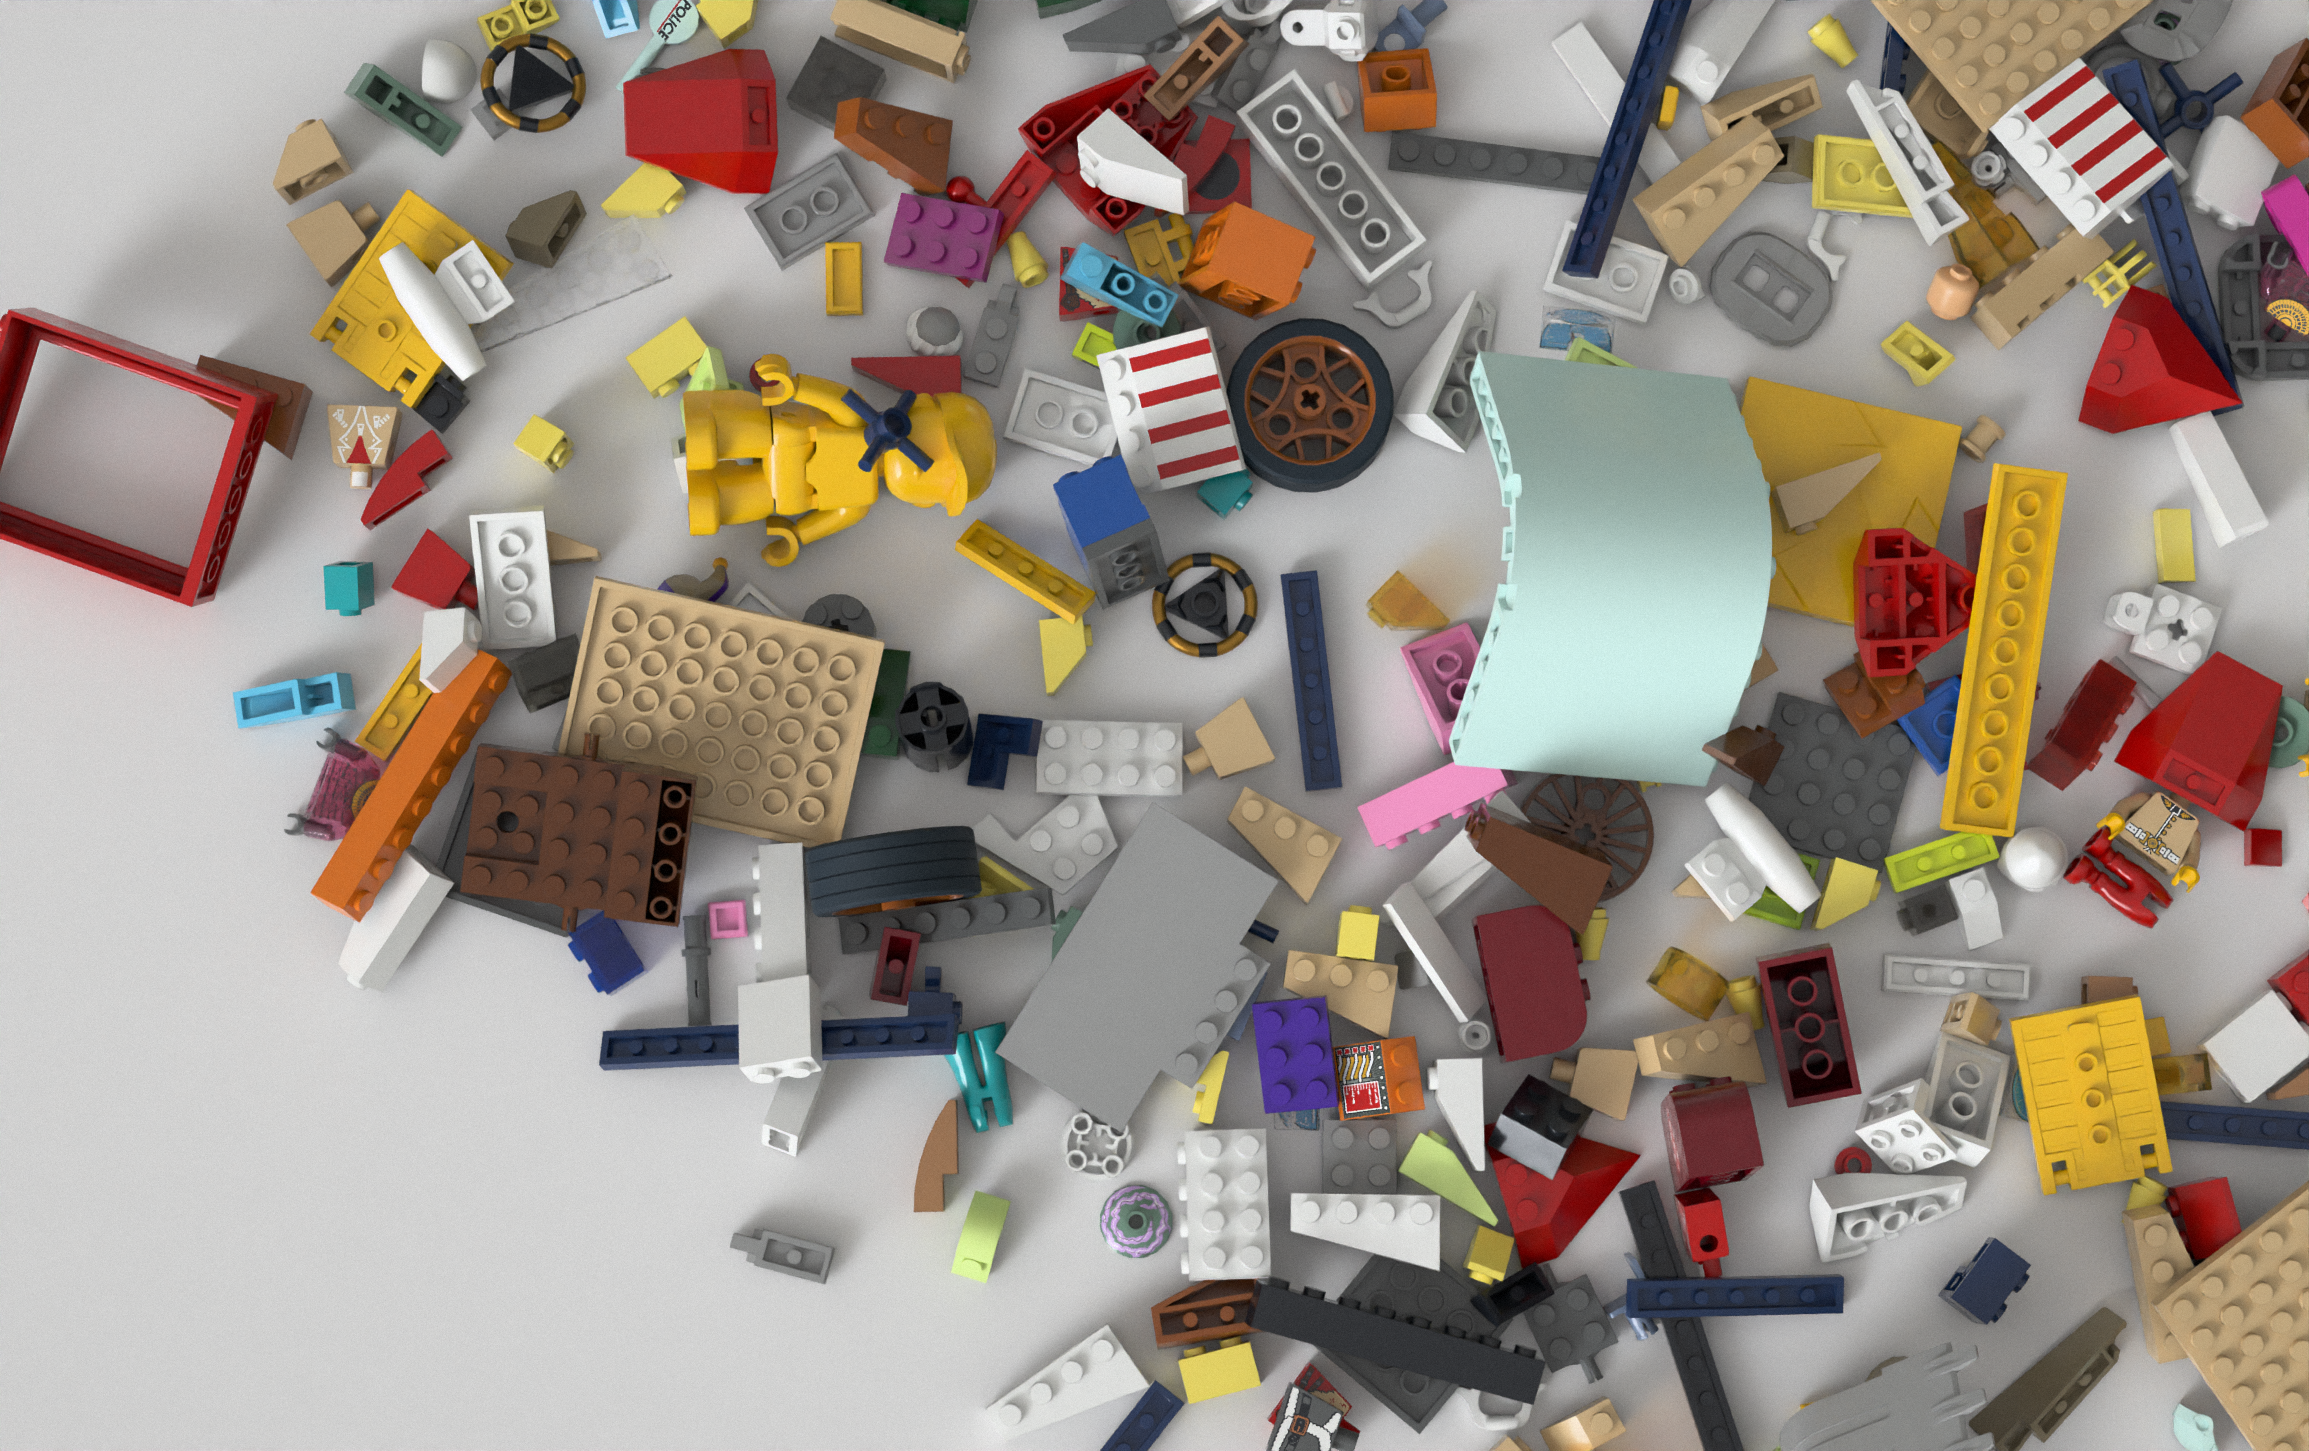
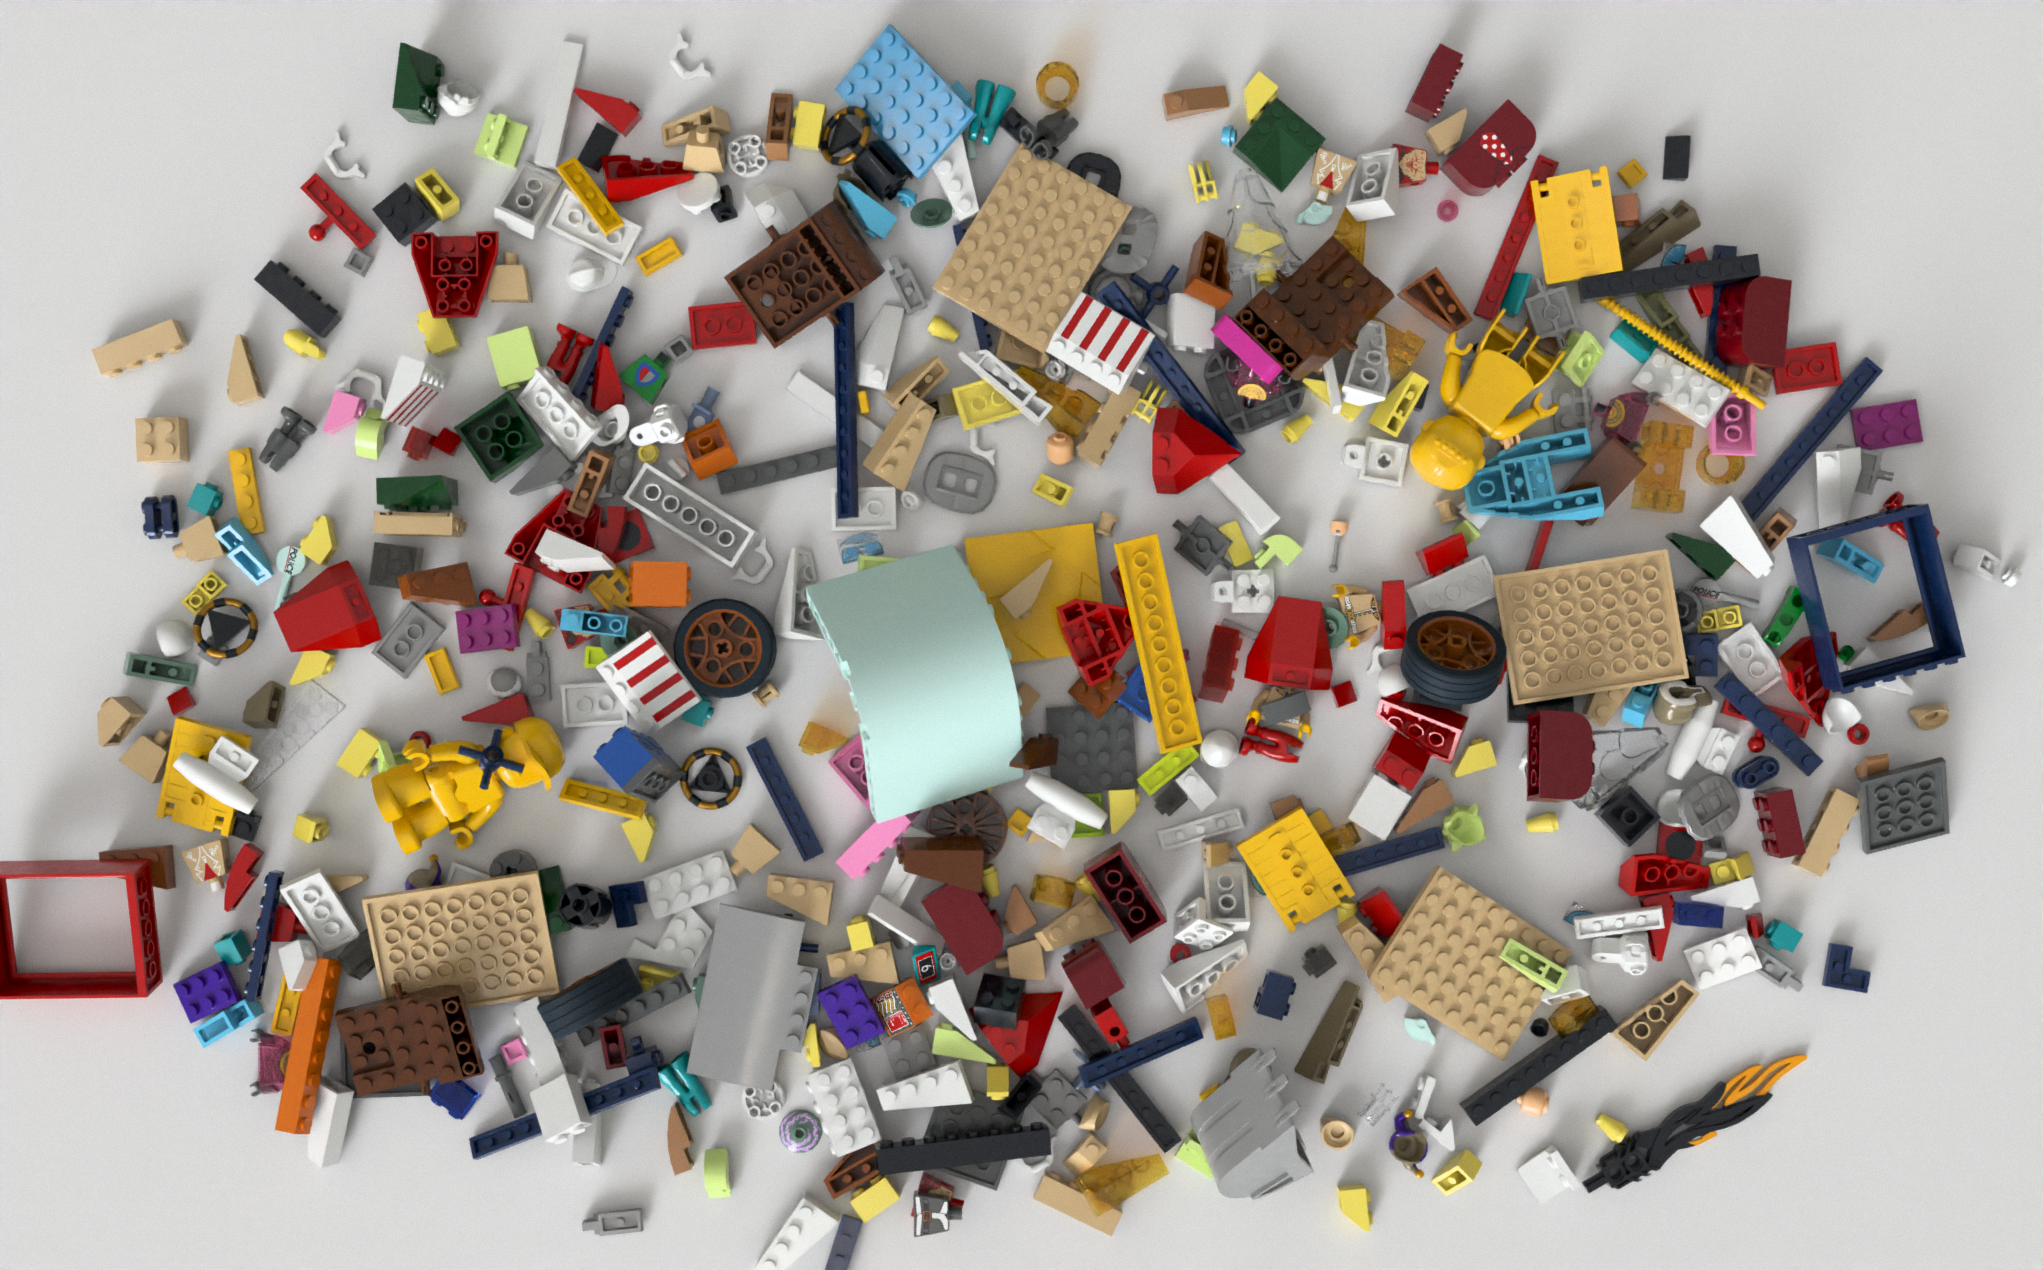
camera: 20 degrees left, 5 degrees up
(281, 640) = (207, 991): none -> dark purple plate
(402, 594) = (265, 928): none -> dark blue plate
(416, 173) = (181, 701): none -> red slope
(1243, 1099) = (832, 1044): none -> tan piece
(1298, 58) = (648, 453): none -> light yellow plate
(1355, 506) = (766, 693): none -> tan bush
(1442, 1025) = (925, 964): none -> slope
(1617, 999) = (1018, 913): none -> medium nougat slope
(1623, 1370) = (1095, 1114): none -> tan piece
(1670, 858) = (1018, 822): none -> yellow tile
(1882, 1290) = (1220, 1016): none -> clear yellow slope
(2072, 1258) = (1318, 961): none -> clear smoke brick
(2125, 527) = (1203, 545): none -> dark grey plate
(2169, 829) = (1286, 708): none -> dark grey slope
(2247, 576) = (1279, 545): none -> yellowish green brick

